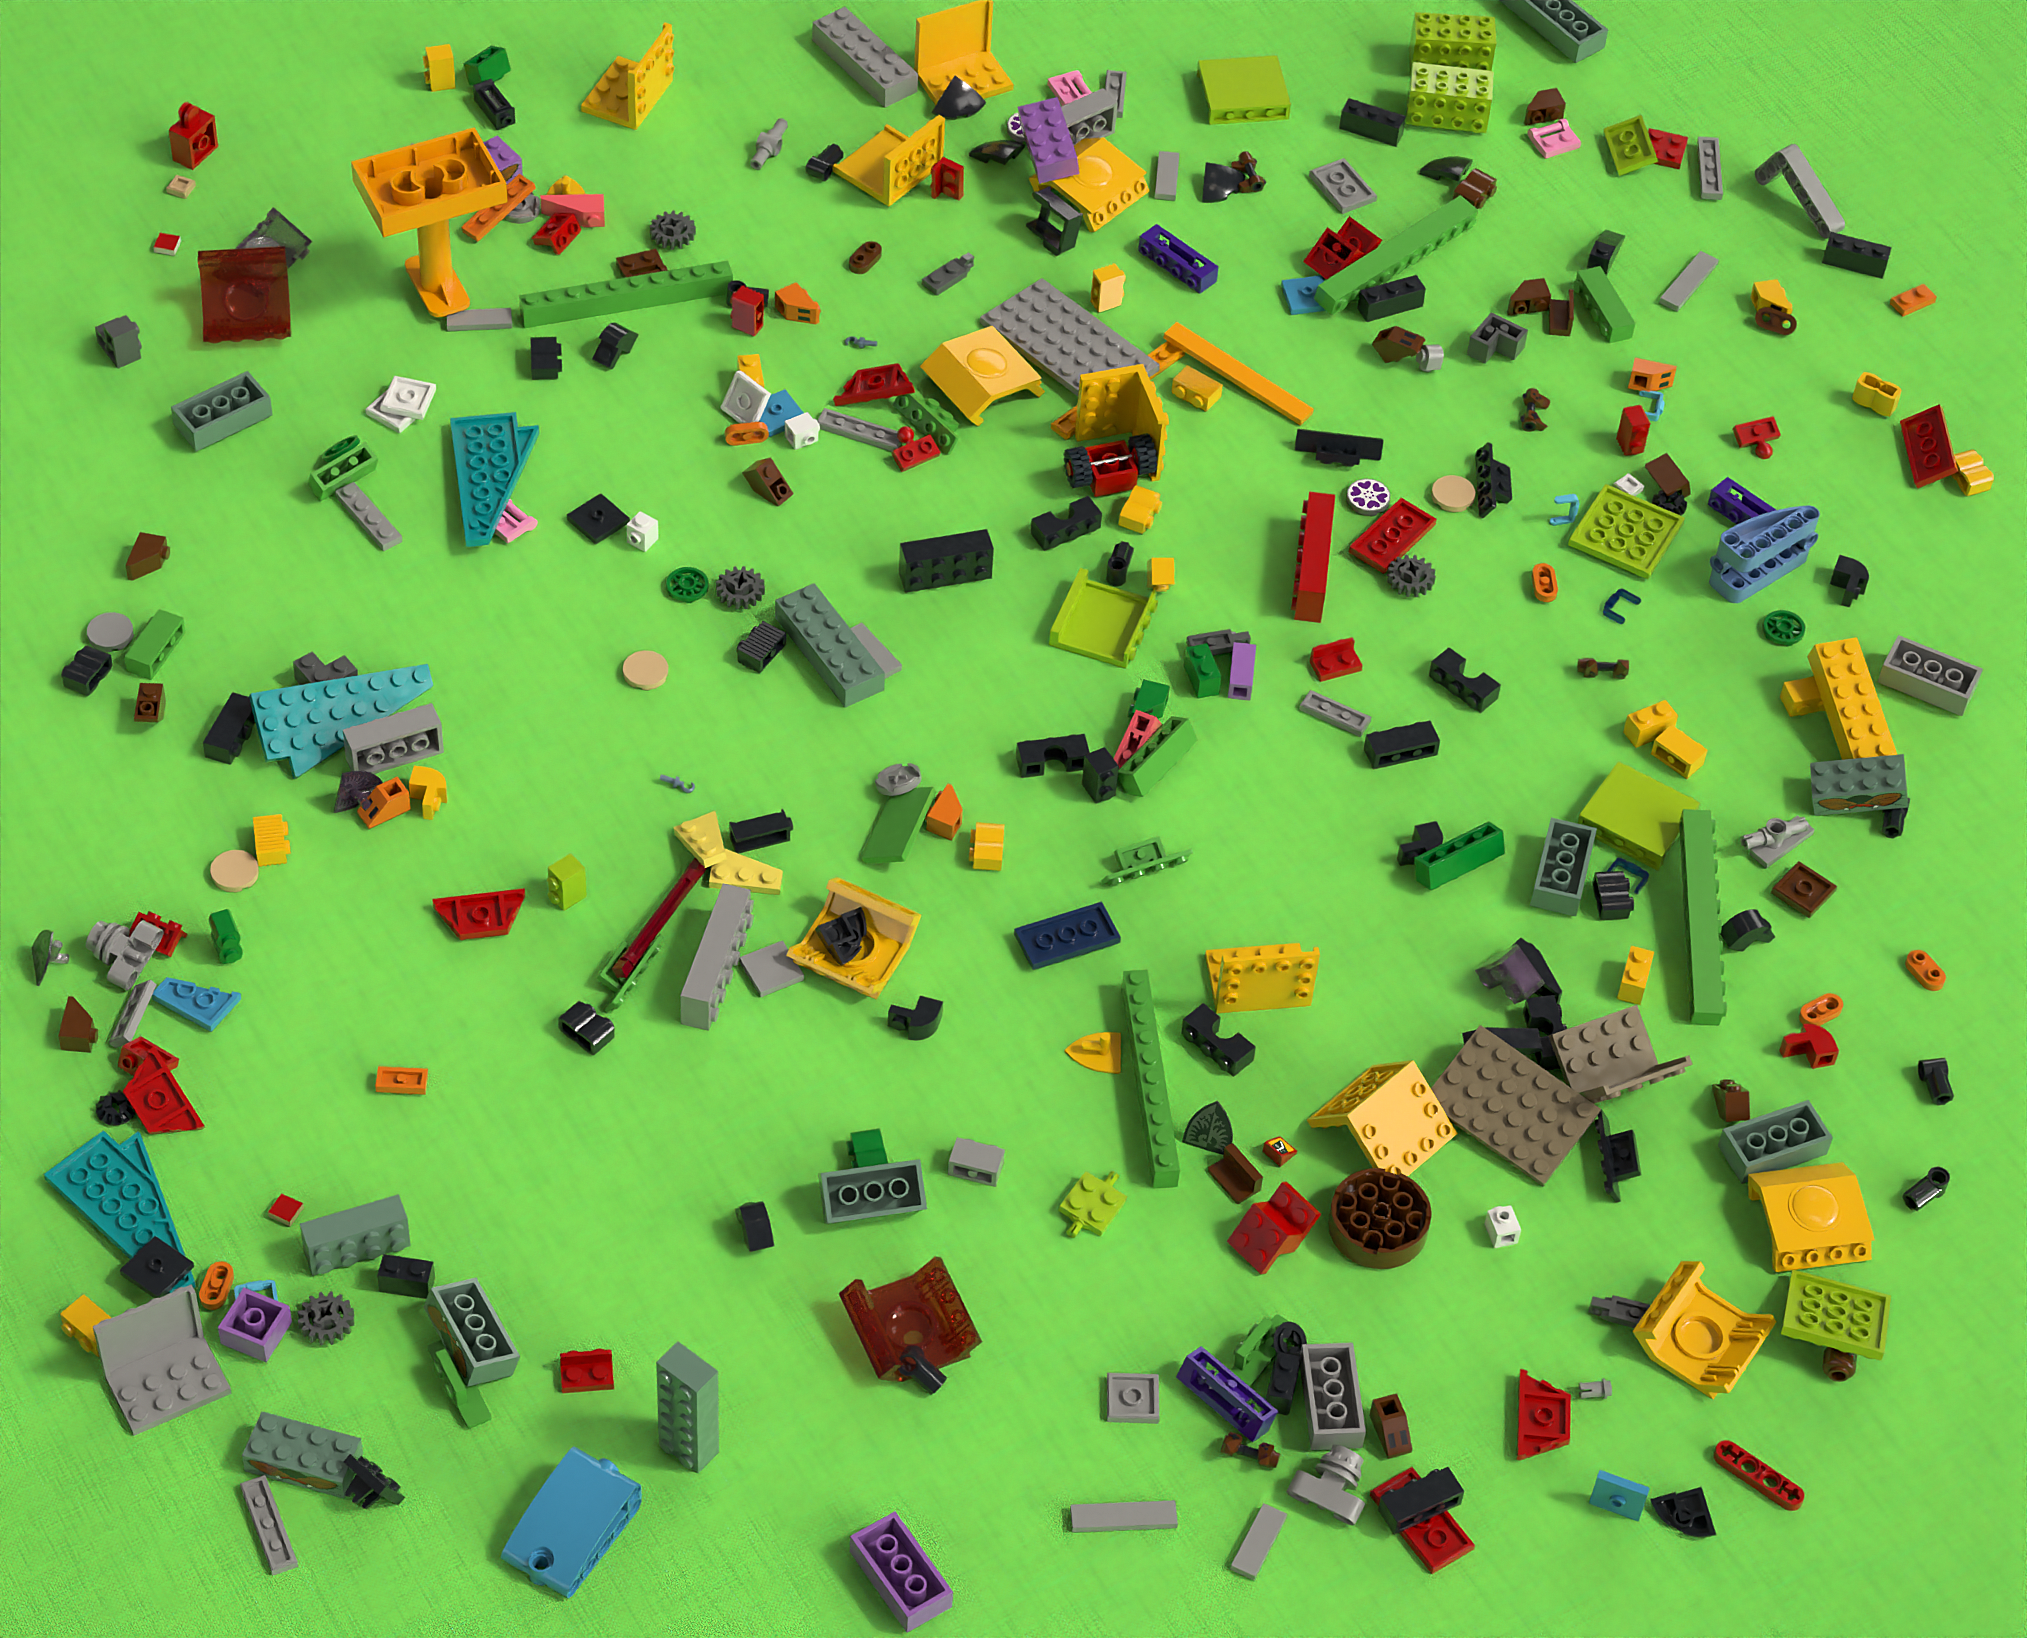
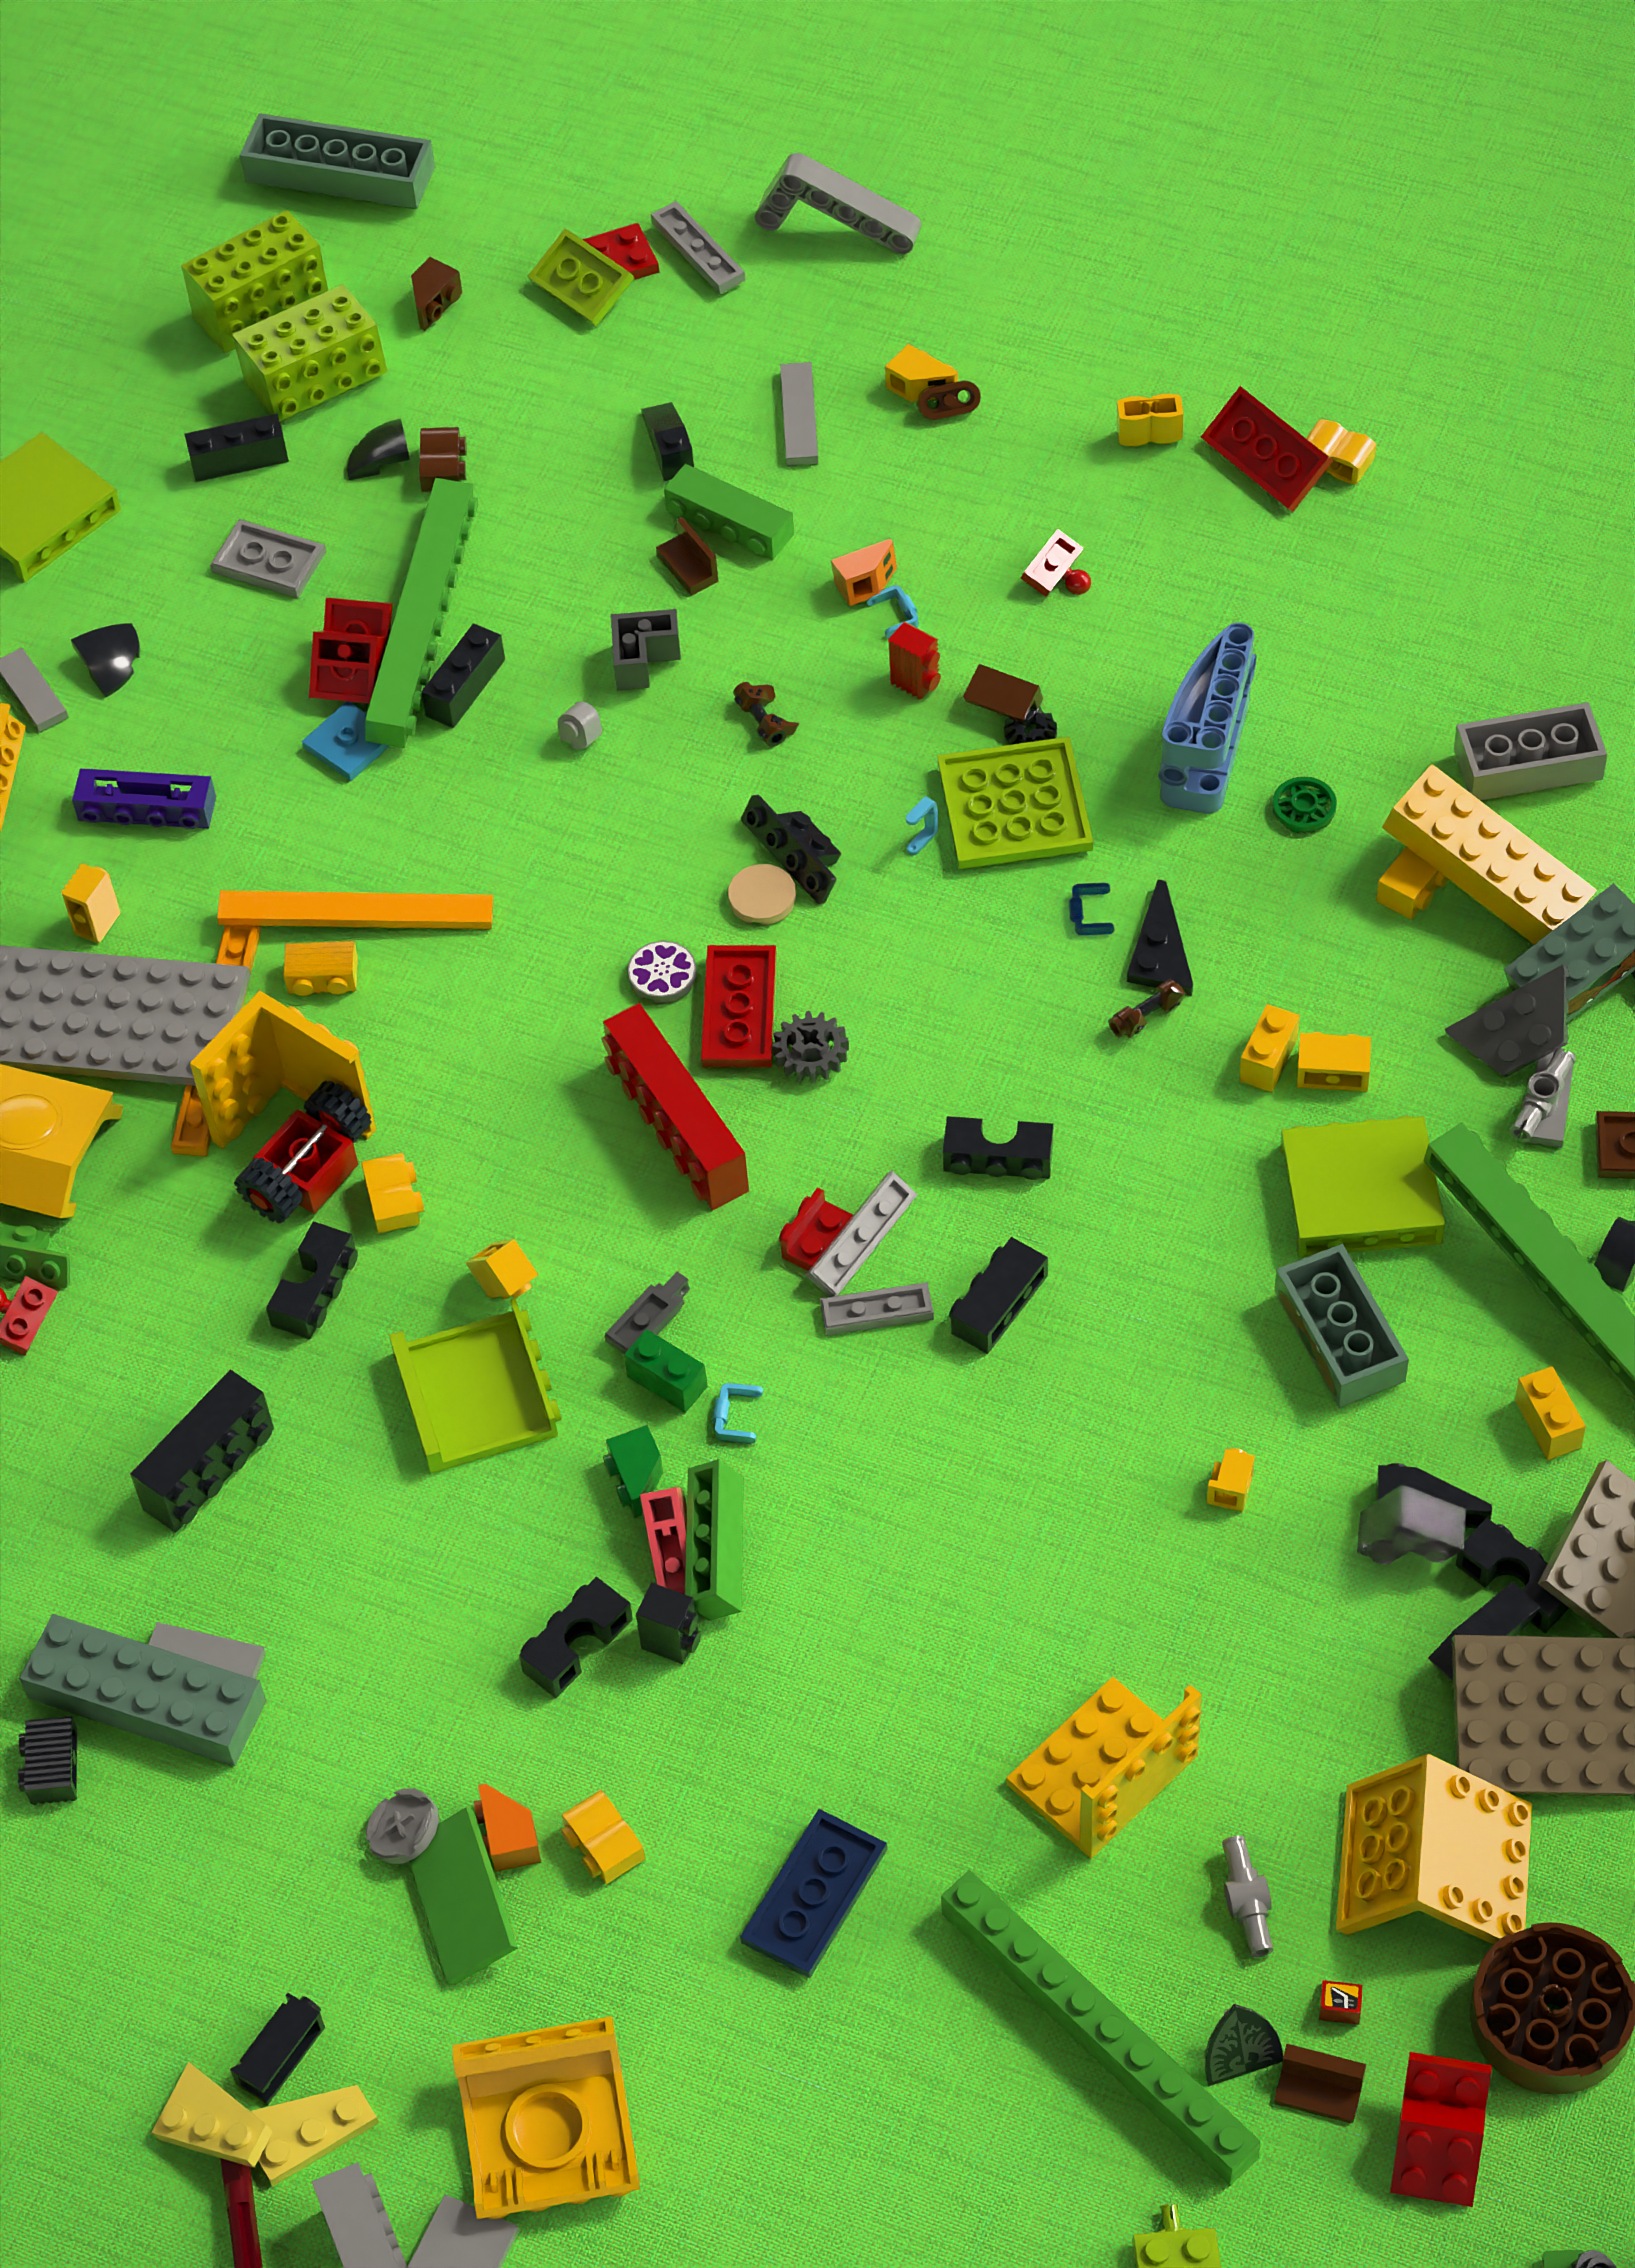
camera: 30 degrees left, 5 degrees up
(676, 782) = (98, 2056): sand blue hand -> none
(843, 935) = (527, 2126): black brick -> none
(919, 1022) = (733, 2176): black brick -> none
(1098, 1052) = (992, 2035): yellow shield -> none
(1119, 564) = (428, 1290): black piece -> none
(1142, 857) = (816, 1703): bright green bracket -> none
(1215, 707) = (721, 1412): none -> medium azure piece
(1230, 1053) = (1163, 1911): black arch -> none
(1242, 671) = (714, 1334): medium lavender brick -> none
(1247, 165) = (123, 608): reddish brown piece -> none
(1275, 1075) = (1247, 1896): none -> light grey pin
(1338, 447) = (570, 929): black bracket -> none
(1357, 674) = (861, 1234): none -> light grey tile
(1397, 343) = (528, 734): slope -> none
(1424, 838) = (1152, 1417): black brick -> none
(1441, 899) = (1231, 1480): none -> yellow brick
(1459, 855) = (1205, 1403): green brick -> none
(1530, 297) = (633, 560): reddish brown slope -> none
(1544, 582) = (980, 943): orange plate -> none
(1557, 143) = (483, 333): bright pink plate -> none
(1612, 895) = (1426, 1320): black brick -> none
(1629, 485) = (962, 737): white tile -> none
(1633, 868) = (1414, 1263): piece -> none
(1640, 644) = (1160, 947): none -> black wing
(1732, 507) = (1134, 679): dark purple brick -> none
(1793, 794) = (1519, 1025): none -> dark grey wing
(1850, 576) = (1323, 681): black brick -> none
(1856, 255) = (968, 251): brick -> none
(1913, 300) = (1077, 268): orange plate -> none

